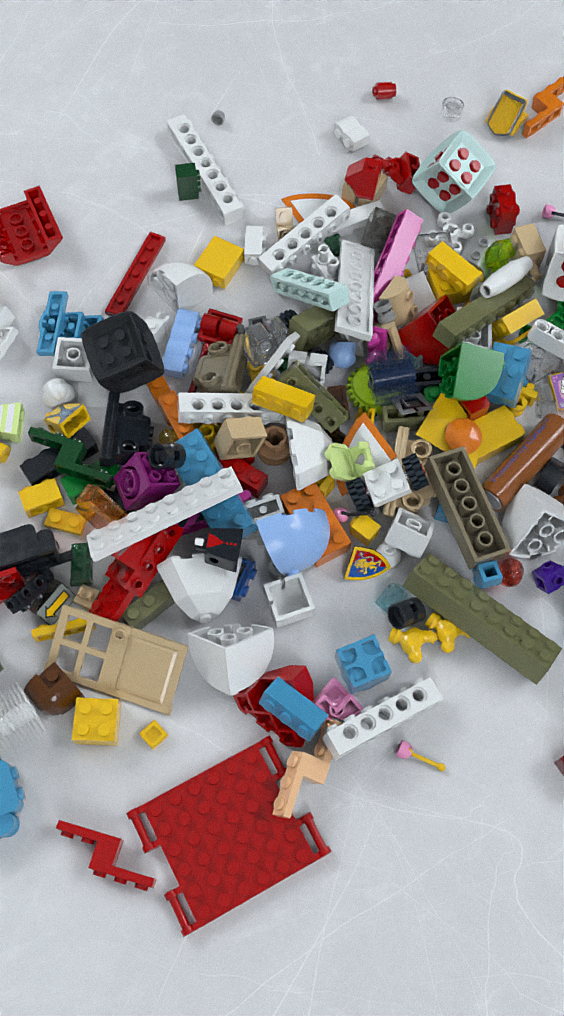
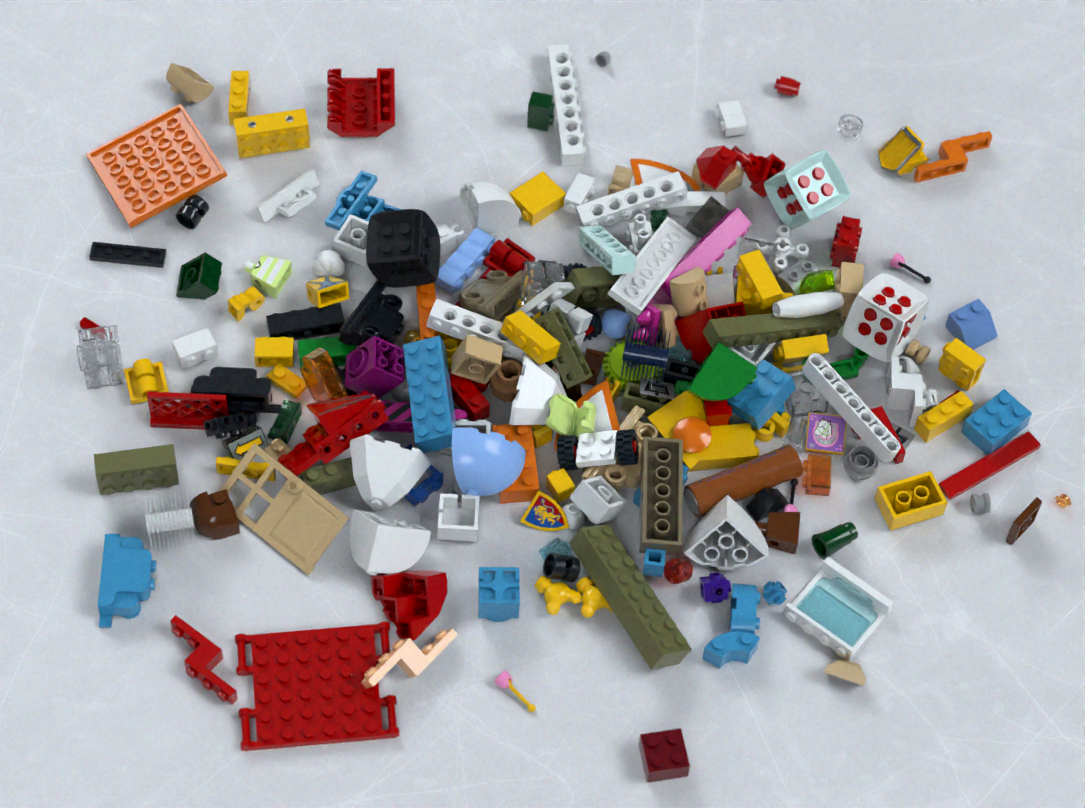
camera: 20 degrees right, 10 degrees down
(70, 457) = (315, 323): dark green bracket -> none
(96, 721) = (241, 553): yellow brick -> none
(135, 274) = (453, 181): red tile -> none
(153, 734) = (286, 585): yellow tile -> none
(163, 513) = (375, 395): white plate -> none
(167, 455) = (400, 348): black wheel -> none
(221, 547) = (414, 442): black torso -> none
(293, 709) = (418, 602): dark azure brick -> none
(337, 701) = (462, 618): bright pink brick -> none
(341, 746) = (488, 649): white brick -> none
(343, 514) = (545, 468): hinge -> none
(384, 311) = (669, 295): light grey wheel -> none

